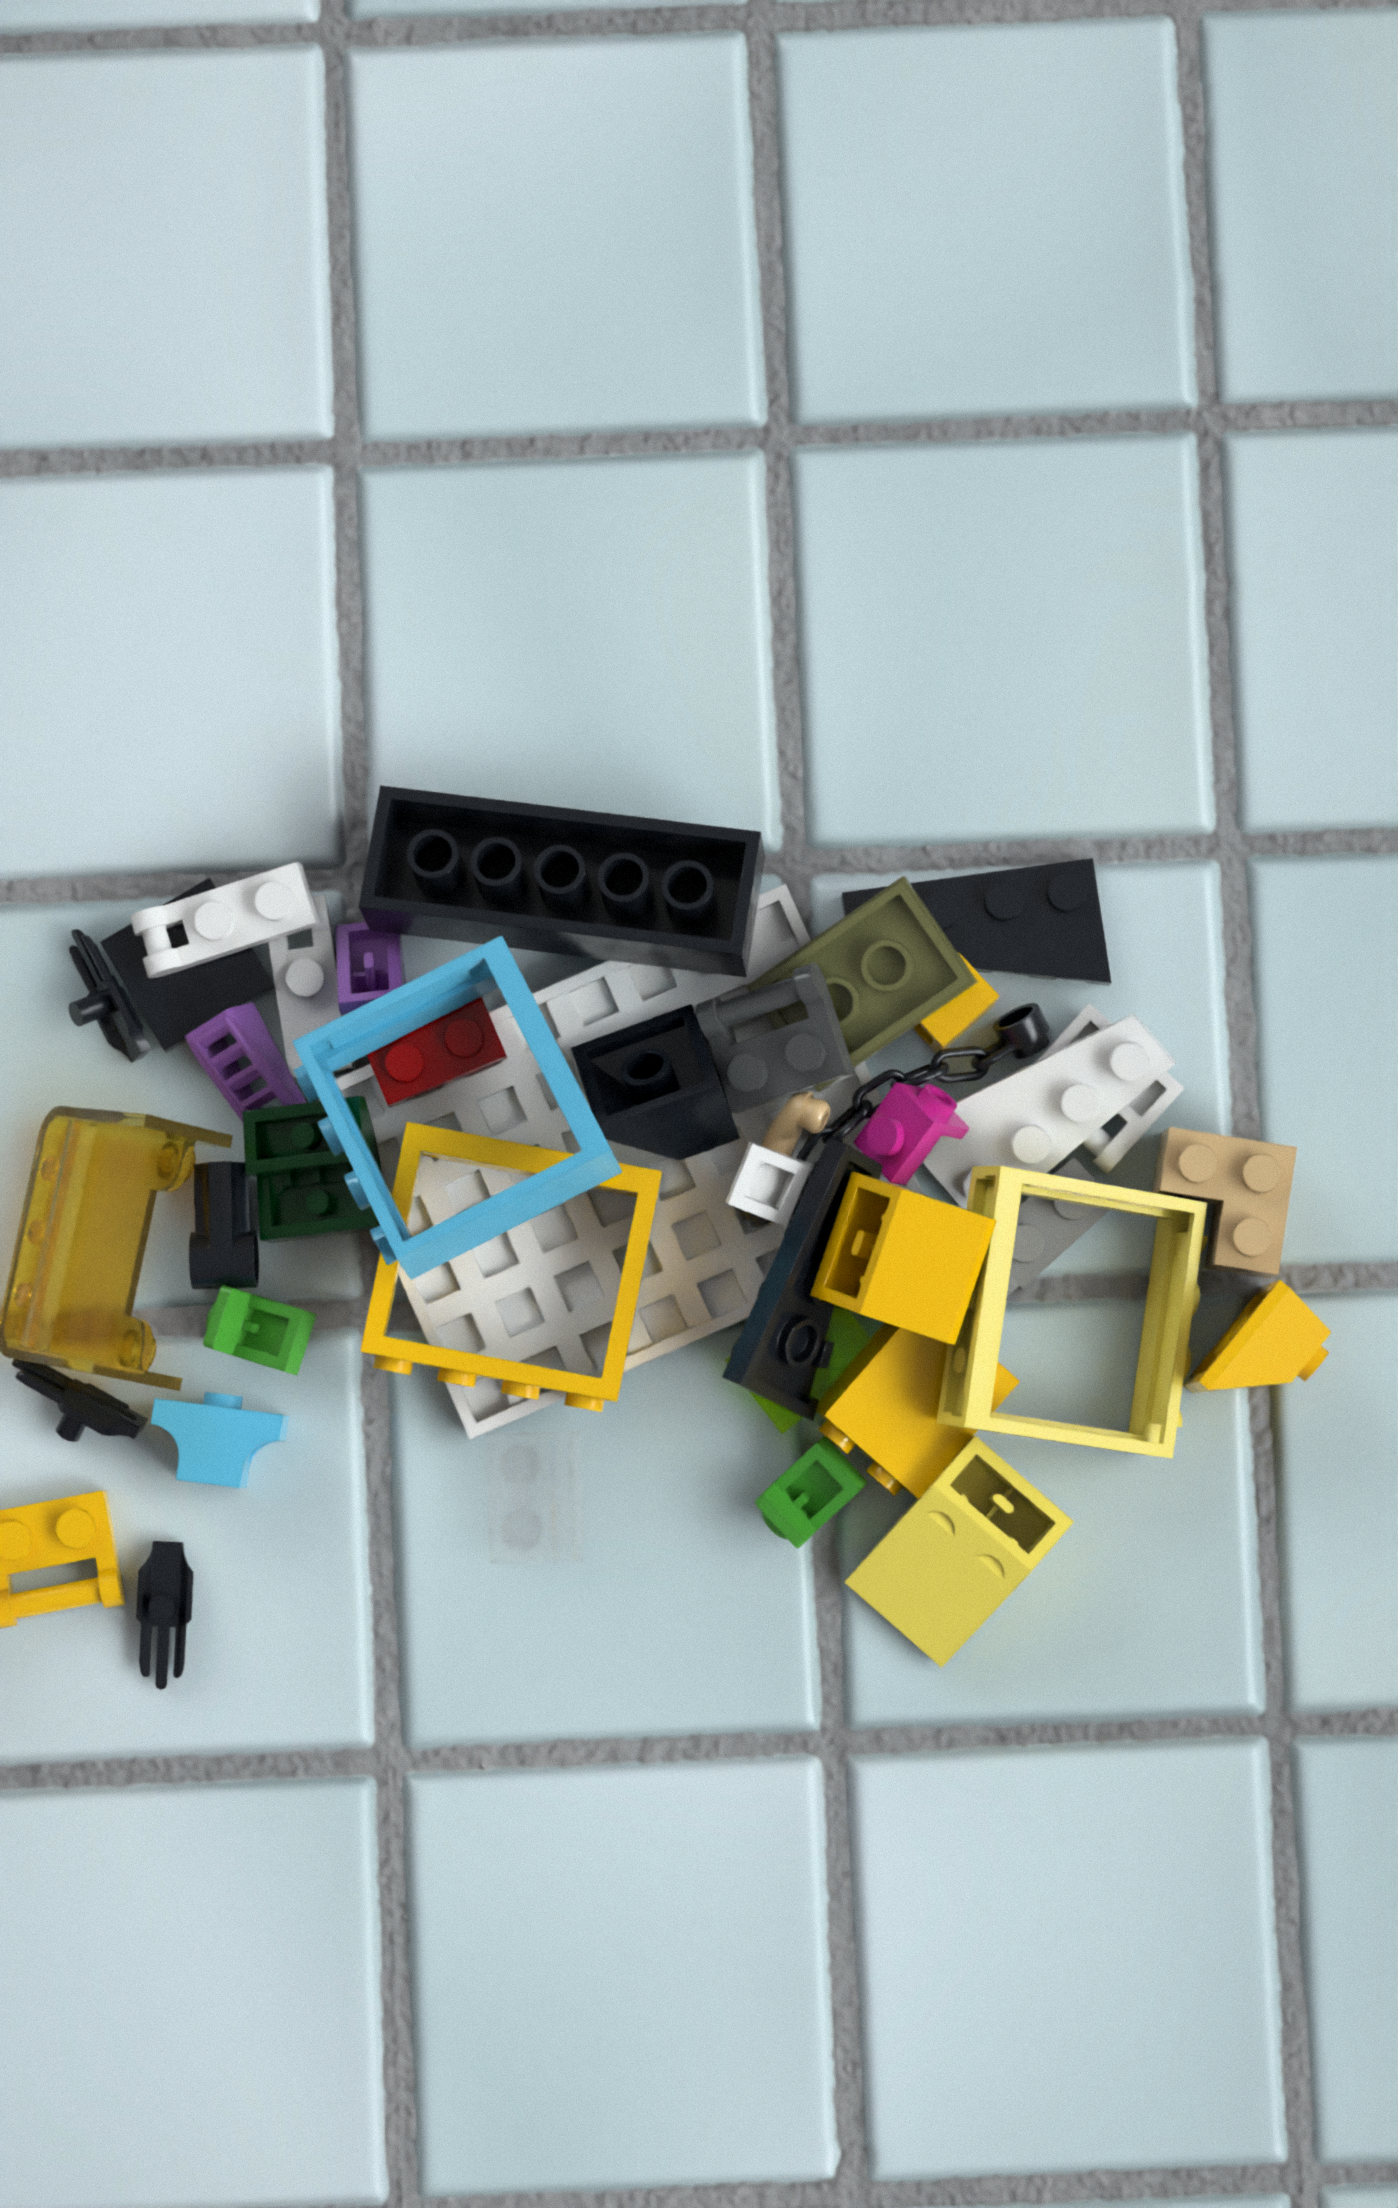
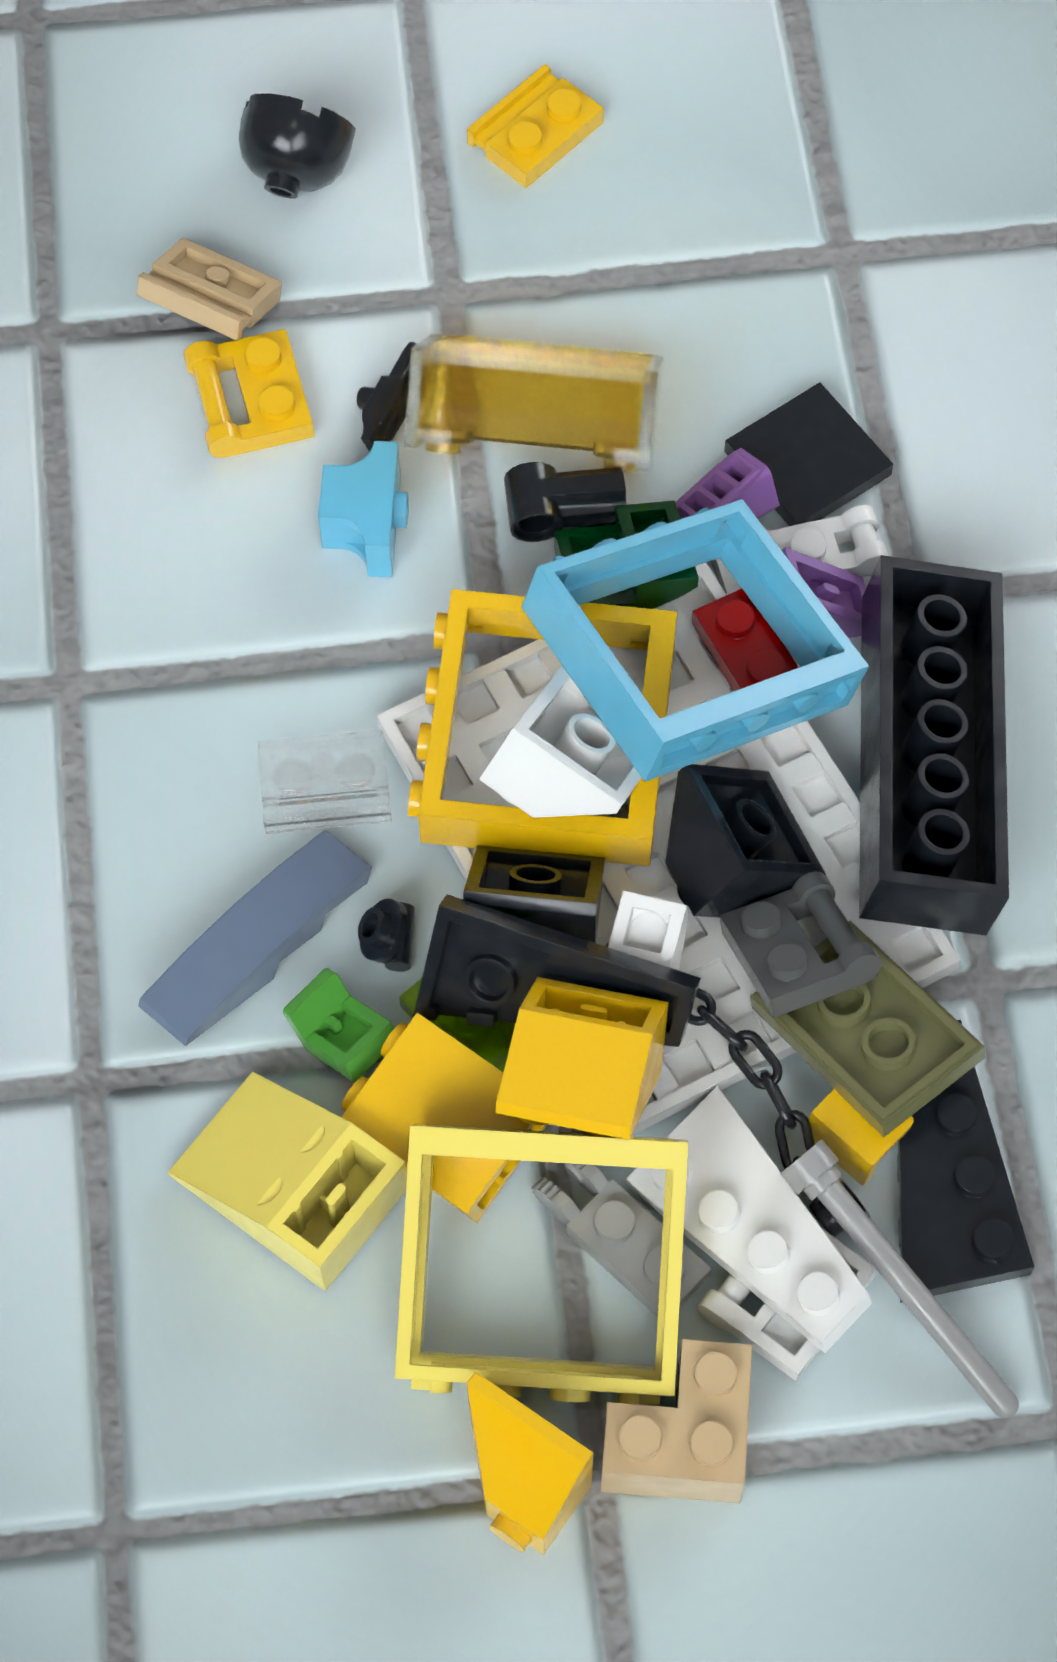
camera: 90 degrees right, 20 degrees down
(106, 1001) = (764, 393): black piece -> none
(164, 1602) = (210, 485): black piece -> none
(227, 919) = (854, 471): white plate -> none
(258, 1329) = (470, 530): bright green bracket -> none
(585, 1252) = (561, 758): none -> white slope
(691, 1290) = (539, 887): none -> black slope
(706, 1442) = (388, 934): none -> black plate
(706, 1572) = (253, 936): none -> sand blue slope
(797, 1113) = (720, 974): tan arm -> none
(908, 1128) = (723, 1076): dark pink bracket -> none
(1006, 1049) = (818, 1177): none -> light grey piece

